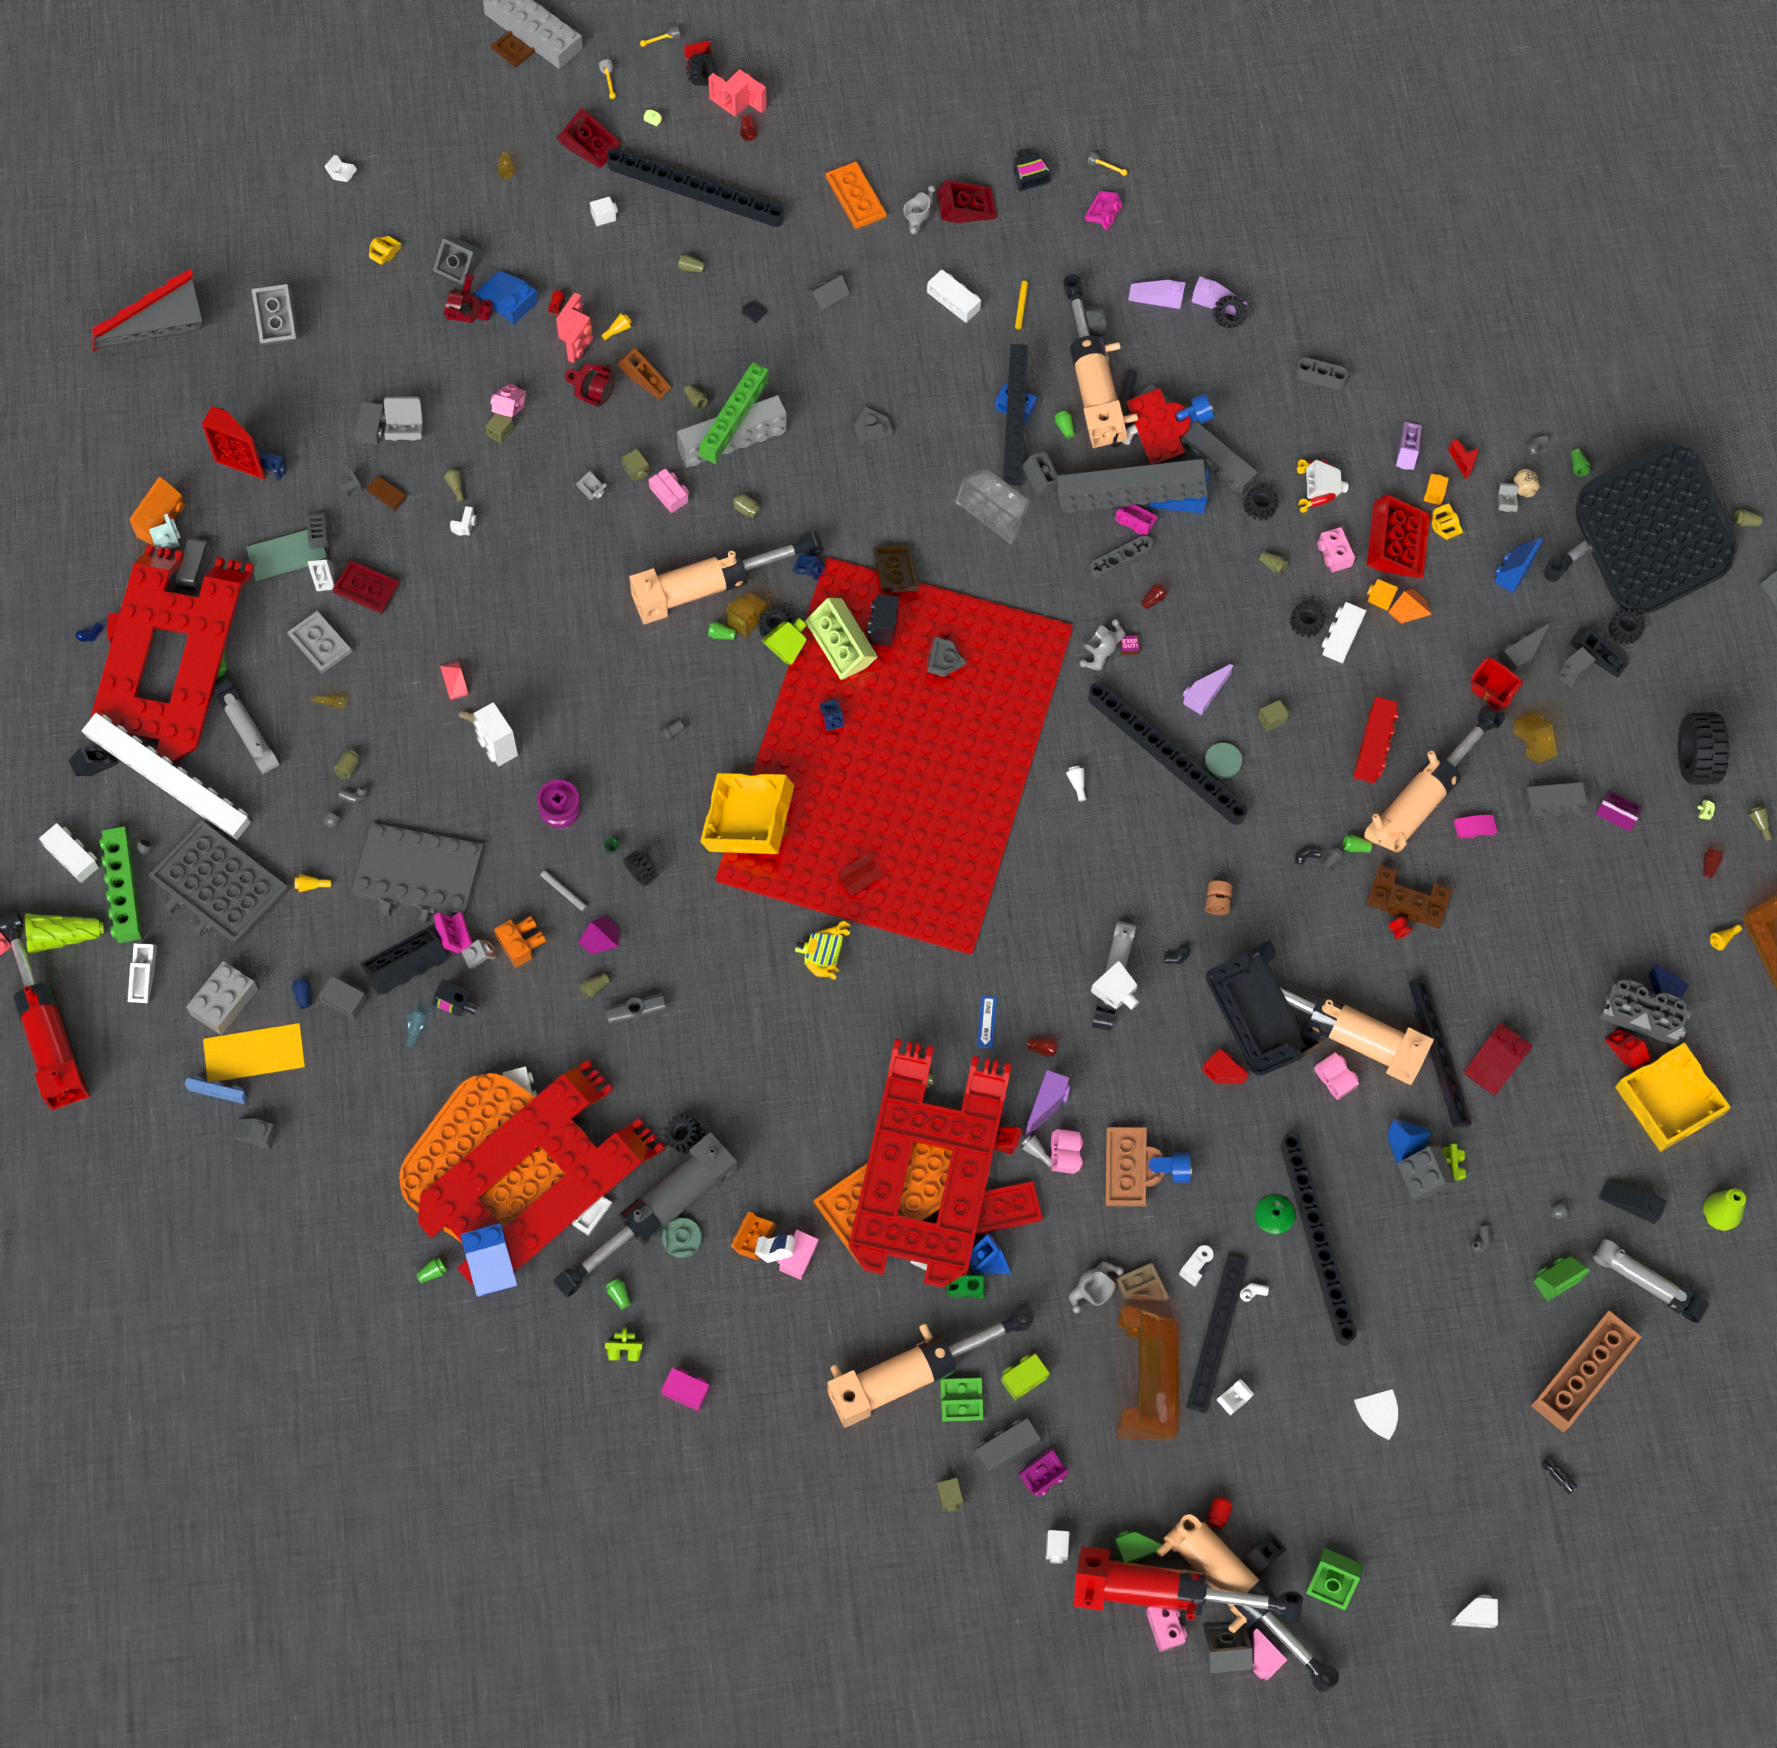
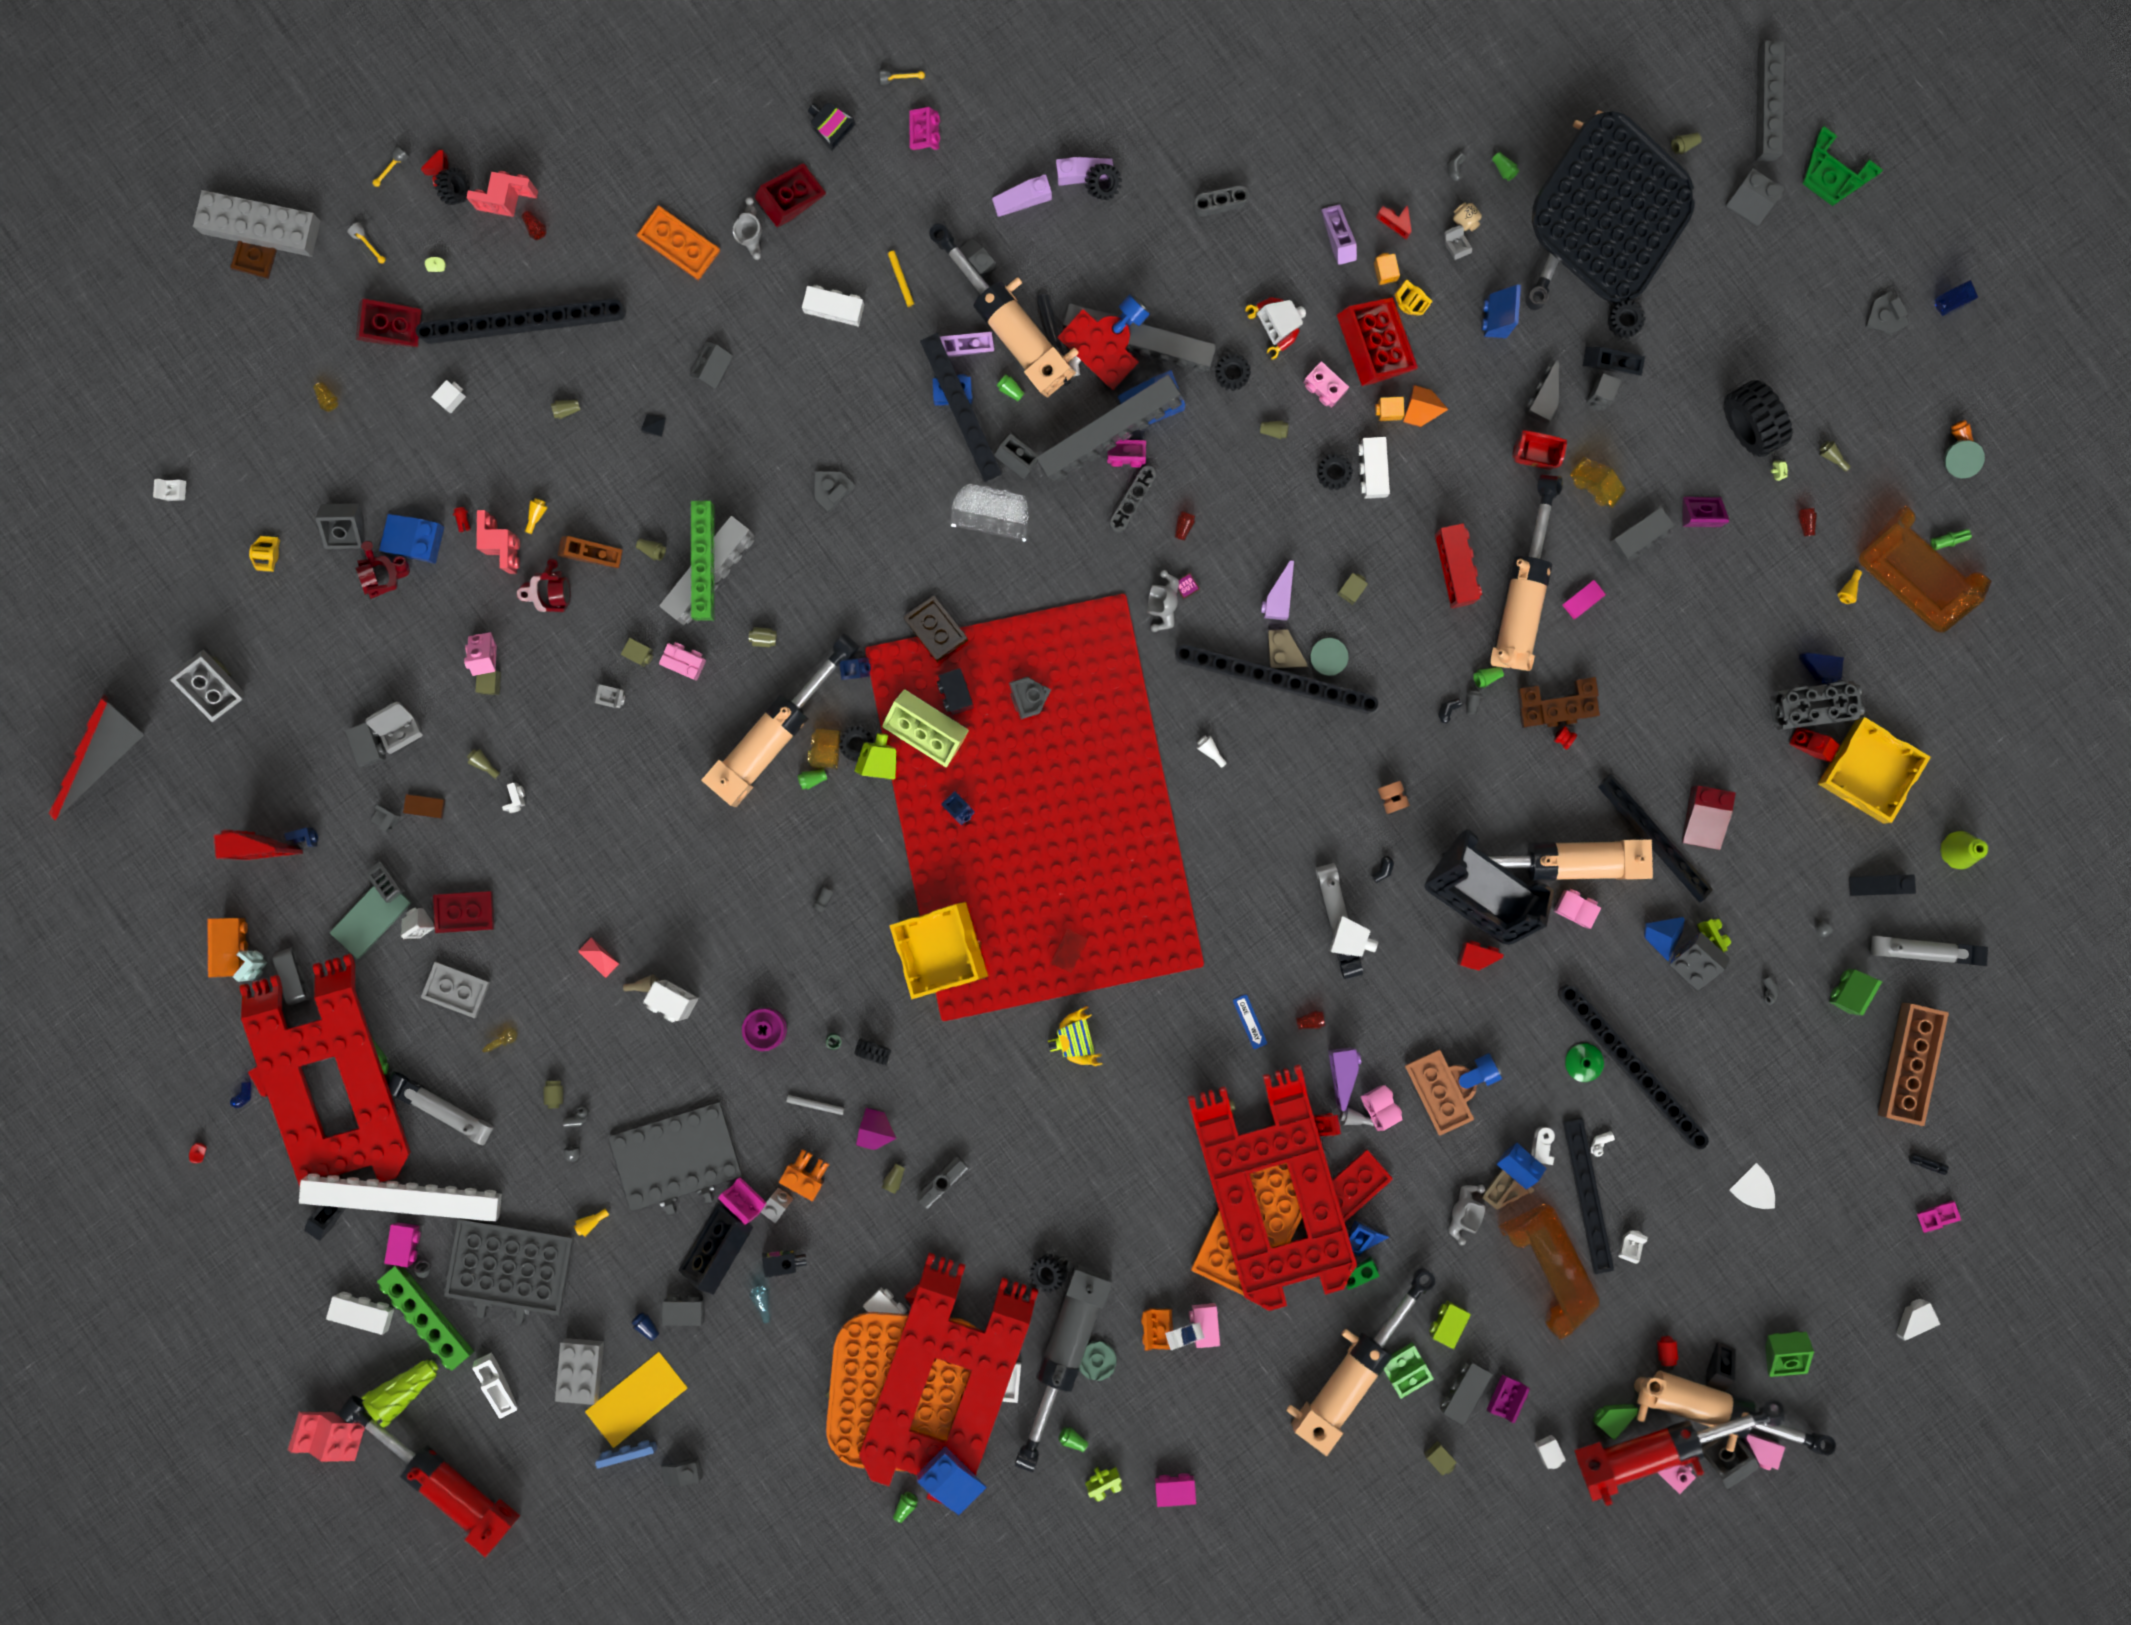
camera: 25 degrees left, 20 degrees up
(22, 657) = (197, 1153): none -> red piece
(141, 816) = (402, 1244): none -> dark pink brick
(1047, 374) = (967, 344): none -> lavender slope
(1167, 1266) = (1521, 1166): none -> blue brick
(1187, 736) = (1284, 651): none -> dark tan wing
(1545, 1530) = (1939, 1215): none -> dark pink slope

